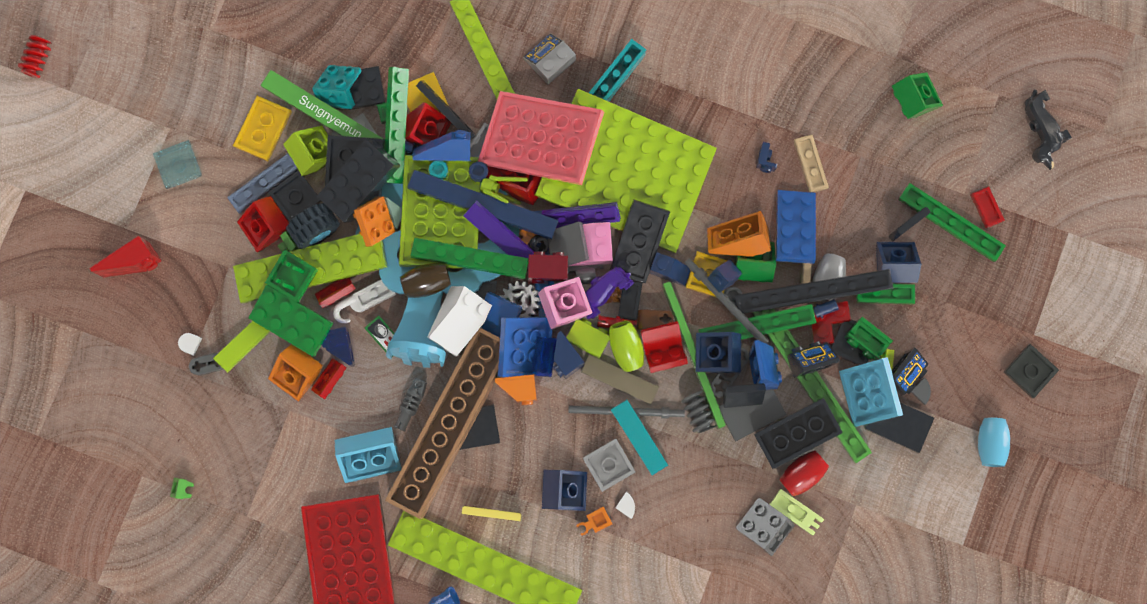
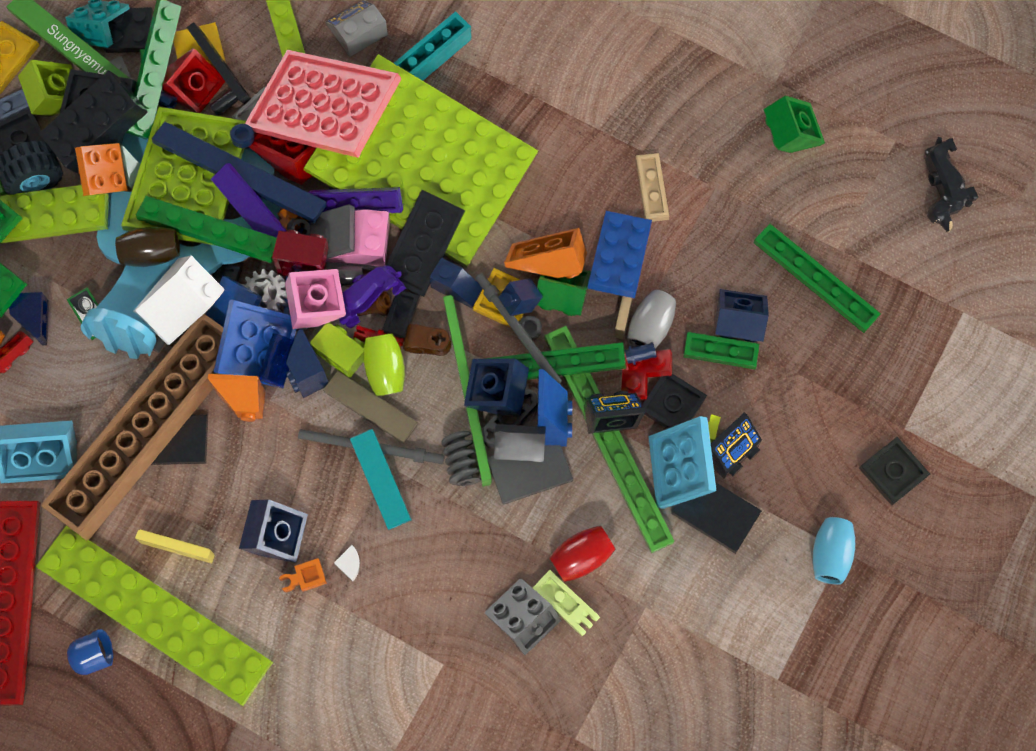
camera: 10 degrees right, 10 degrees down
(334, 291) = (33, 255): red plate -> none
(363, 299) = (74, 267): white plate -> none
(411, 403) = (103, 397): dark grey hinge -> none
(438, 169) = (195, 126): teal tile -> none
(449, 147) = (217, 103): blue slope -> none
(491, 188) = (255, 156): lime plant -> none
(609, 465) = (335, 508): light grey plate -> none
(663, 347) = (430, 371): red bracket -> none
(764, 156) = (594, 172): dark blue bracket -> none
(798, 433) = (581, 500): black brick -> none
(814, 291) = (629, 329): black tile -> none
(868, 339) = (688, 396): green hinge -> none
(909, 224) = (761, 269): black tile -> none
(922, 391) = (751, 476): dark grey tile -> none
(987, 207) = (864, 267): red tile -> none

